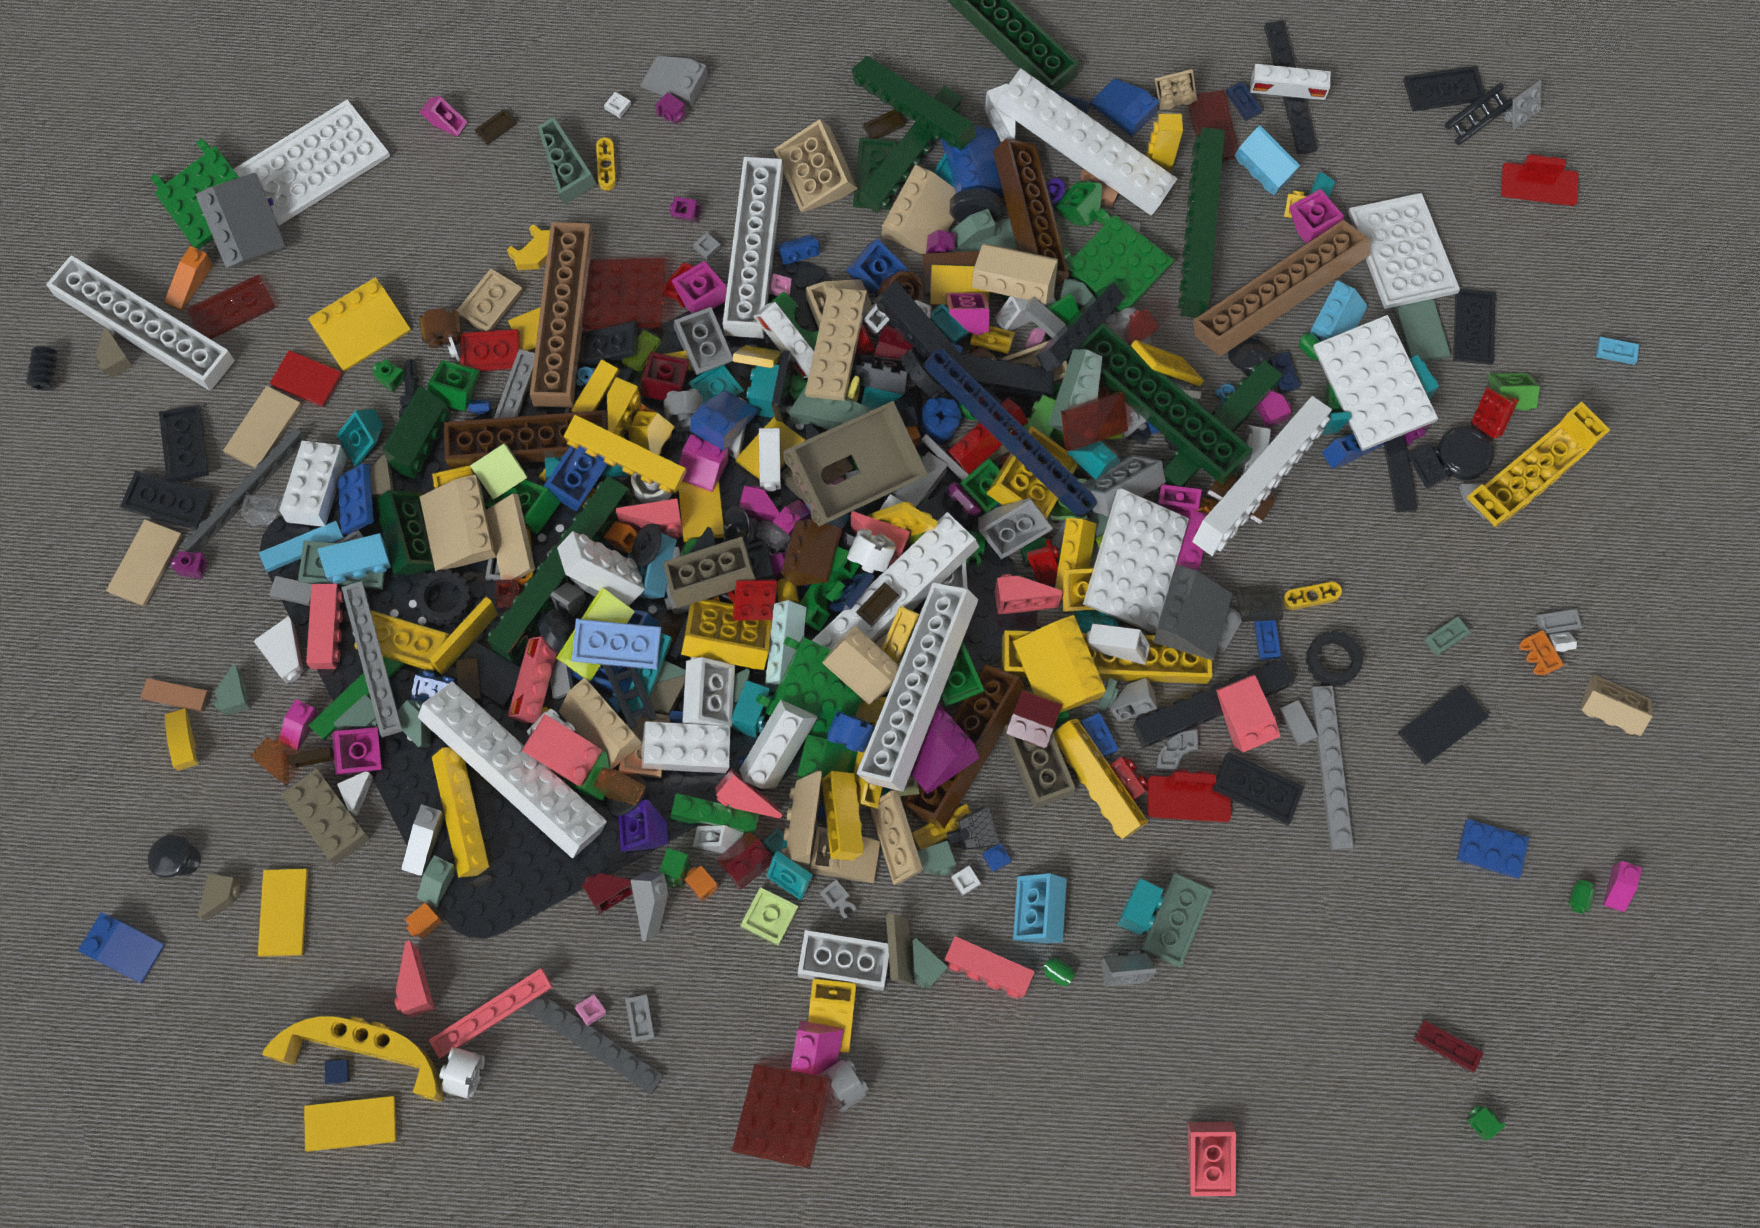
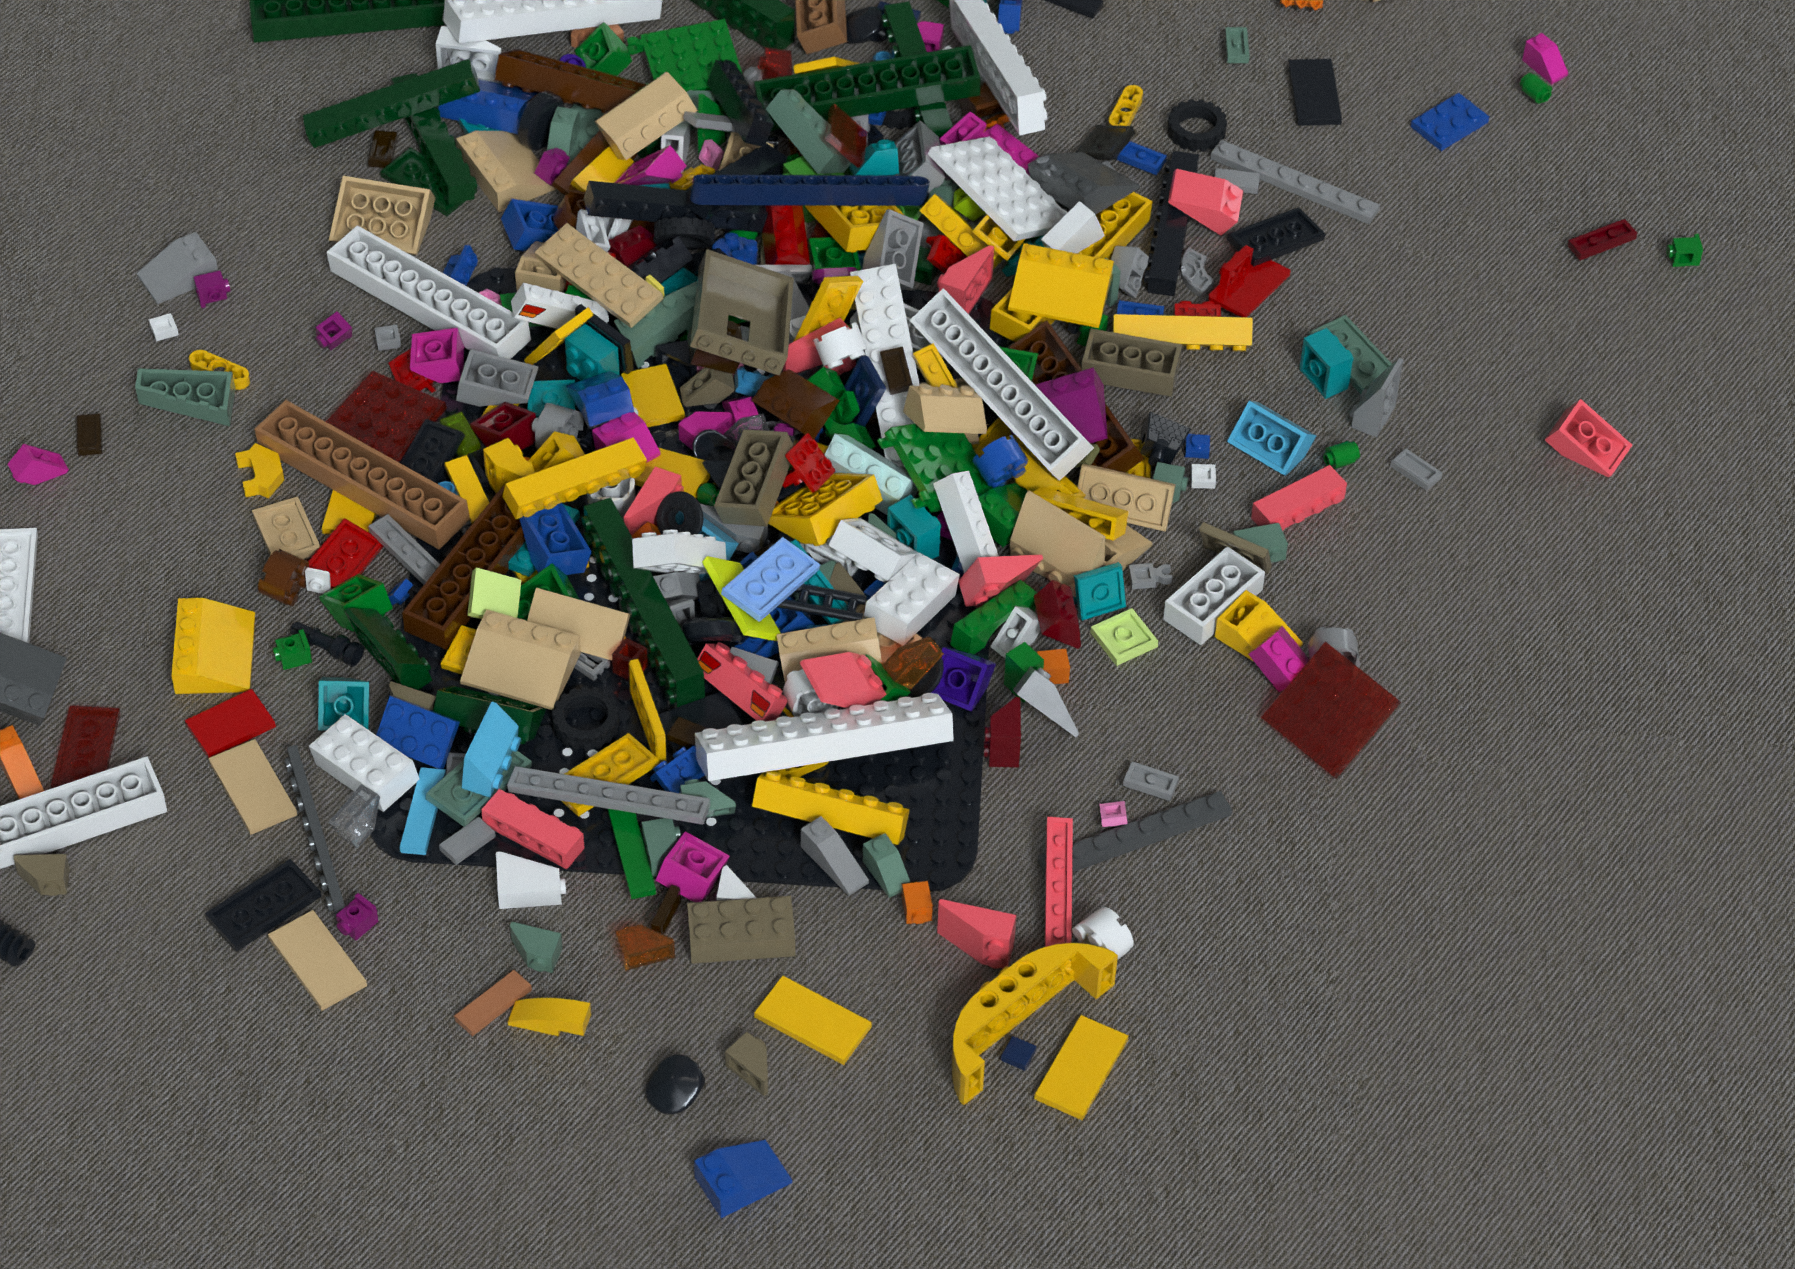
camera: 55 degrees left, 20 degrees down
(183, 443) = (211, 858): black tile -> none
(296, 723) = (617, 903): dark pink slope -> none
(770, 458) = (668, 388): white slope -> none
(1034, 719) = (1097, 328): dark red slope -> none
(1089, 1037) = (1416, 469): none -> light grey tile

